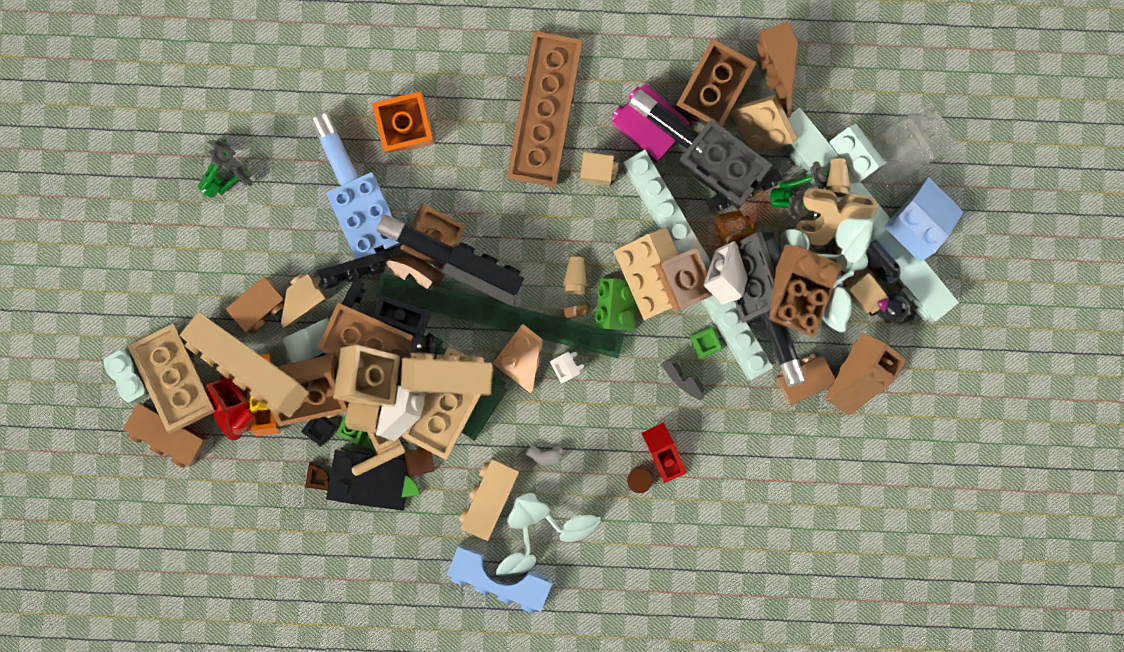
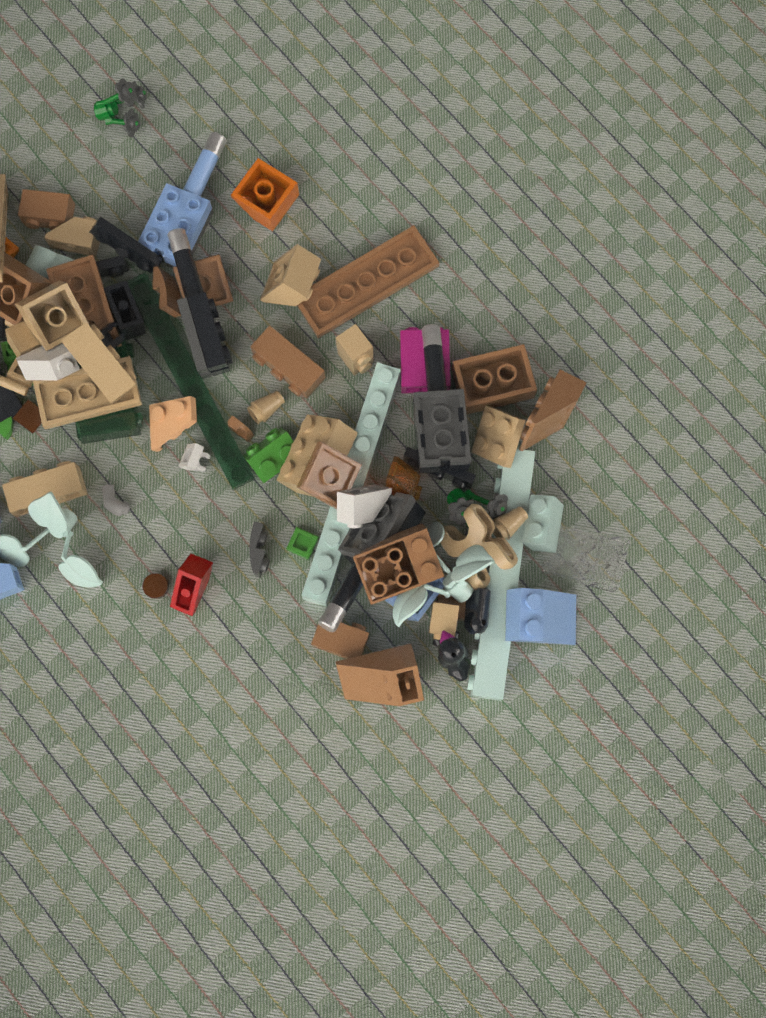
camera: 45 degrees right, 10 degrees down
(492, 165) = (291, 277): none -> tan slope
(556, 229) = (287, 362): none -> medium nougat brick

